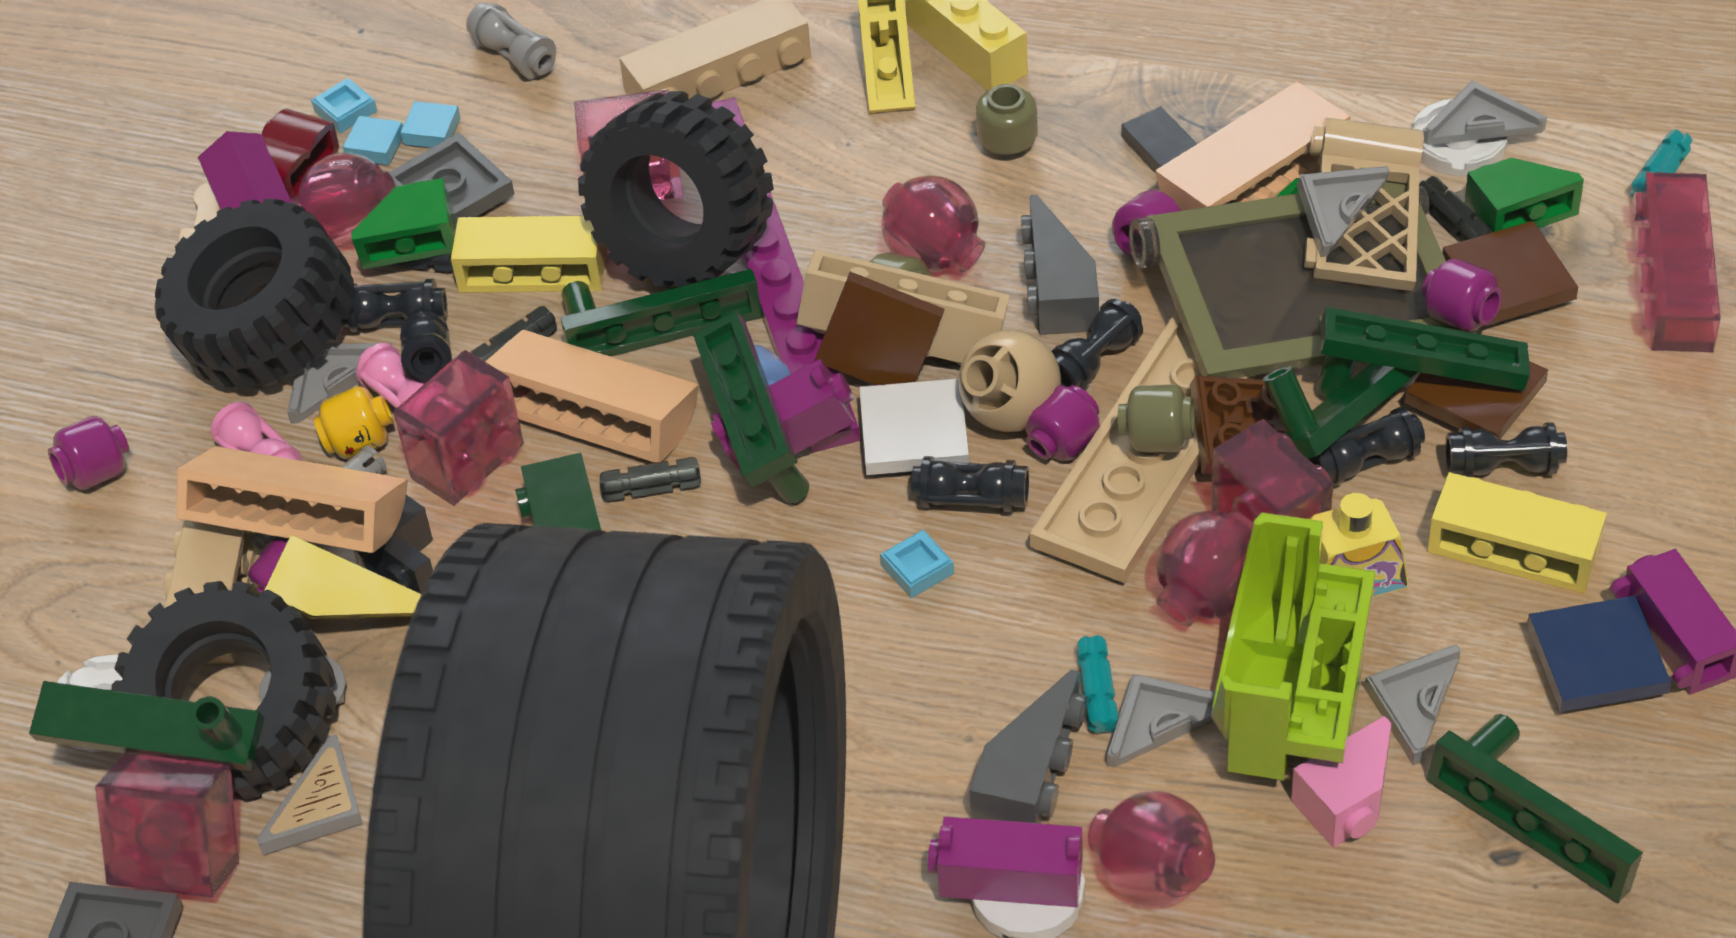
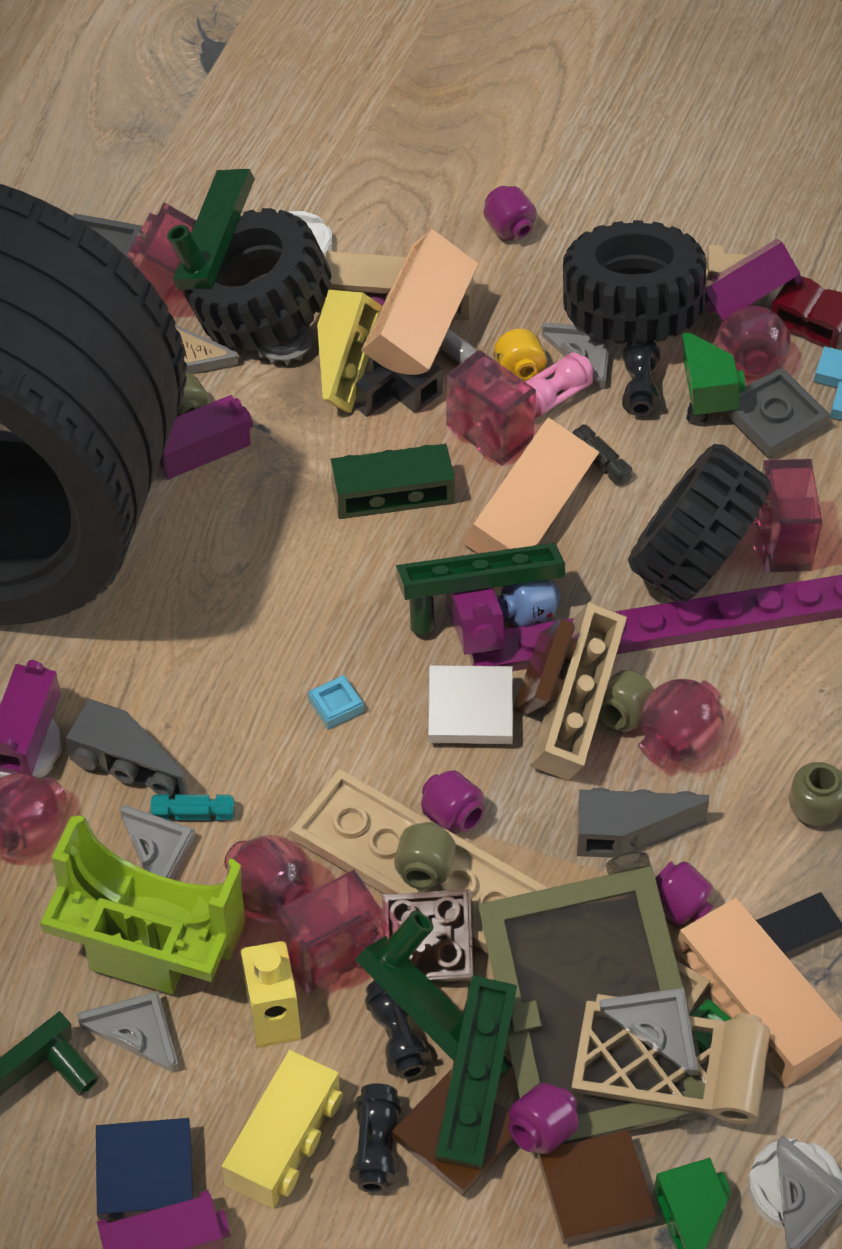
camera: 90 degrees right, 5 degrees up
(243, 429) = (492, 311): bright pink piece -> none
(424, 345) = (566, 386): black piece -> none
(526, 254) = (689, 434): light yellow brick -> none
(650, 479) = (445, 530): pearl dark grey axle -> none
(656, 316) = (597, 505): dark green piece -> none
(989, 484) = (396, 755): black piece -> none
(1007, 379) = (490, 757): tan brick -> none
(1112, 329) = (527, 825): black piece -> none
(1345, 796) = (51, 963): bright pink slope -> none
(1453, 210) = (714, 1145): pearl dark grey axle -> none

